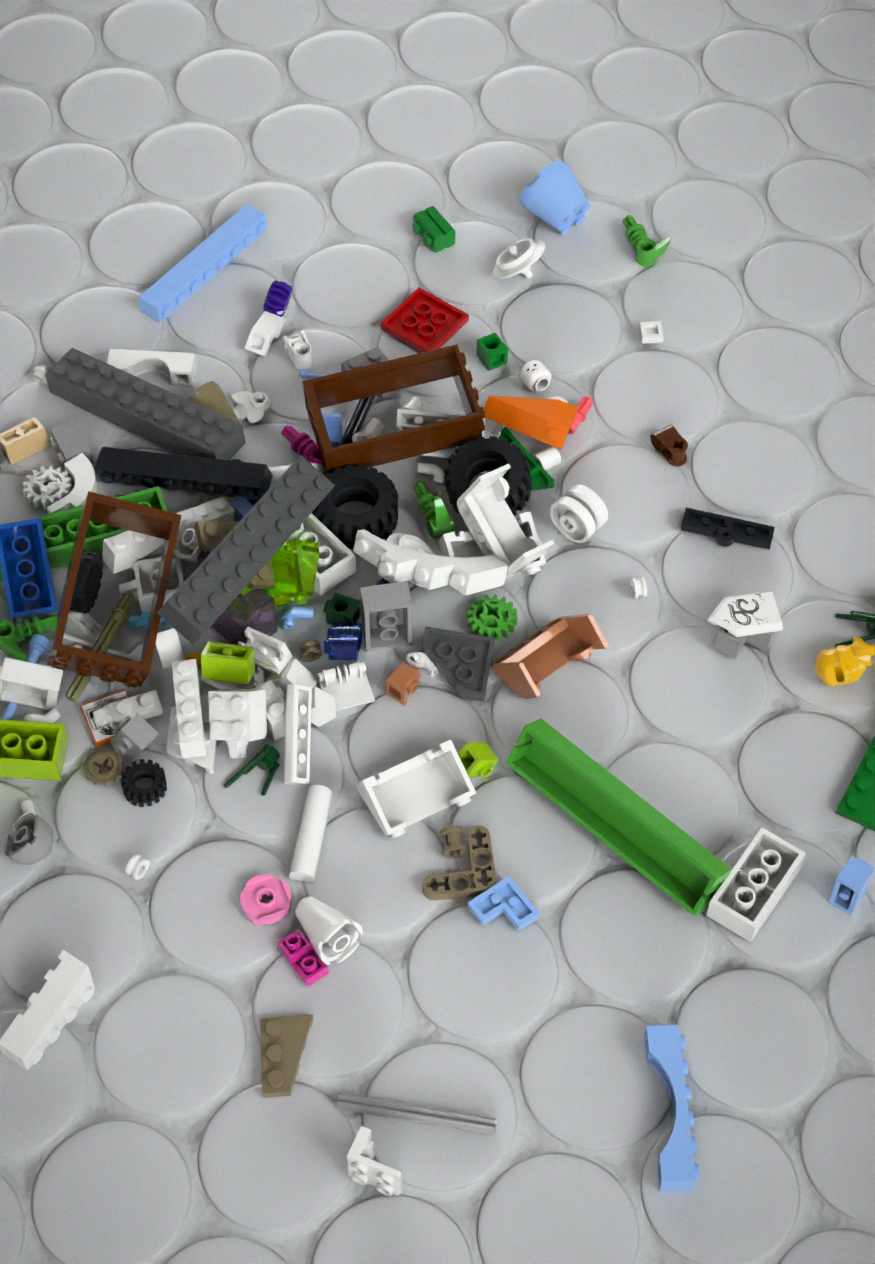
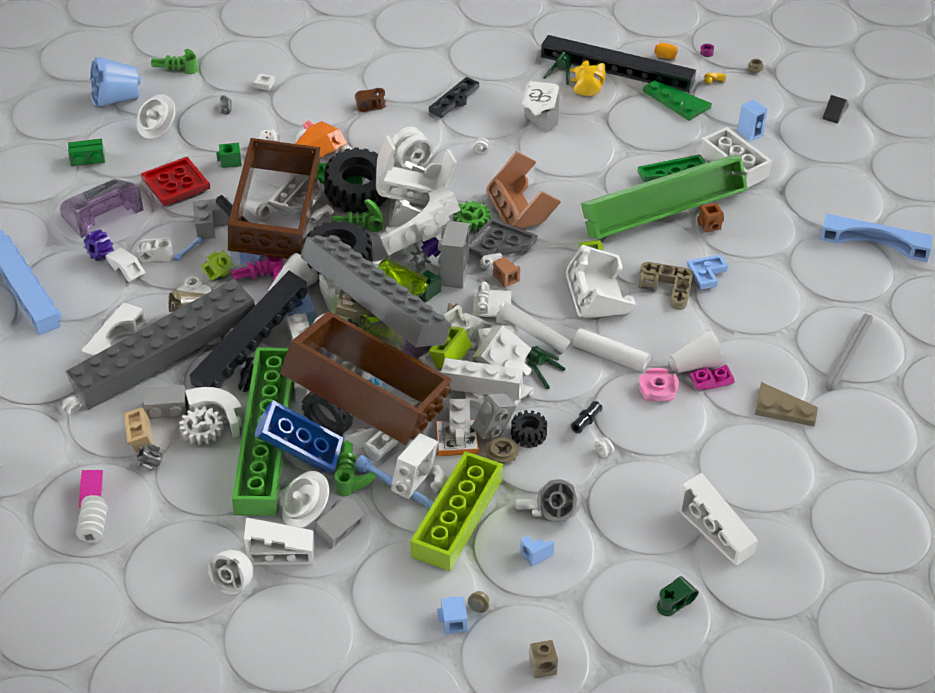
camera: 70 degrees left, 10 degrees down
(183, 836) = (586, 417): none -> black pin
(291, 409) = (217, 265): none -> lime brick
(343, 641) = (457, 288): clear blue brick -> none
(363, 277) = (83, 208): none -> clear purple windscreen
(366, 1171) = (885, 376): white bracket -> none
(589, 314) = (227, 107): none -> dark grey arm
(606, 882) = (710, 217): none -> dark orange brick
(702, 818) = (661, 169): none -> green wing

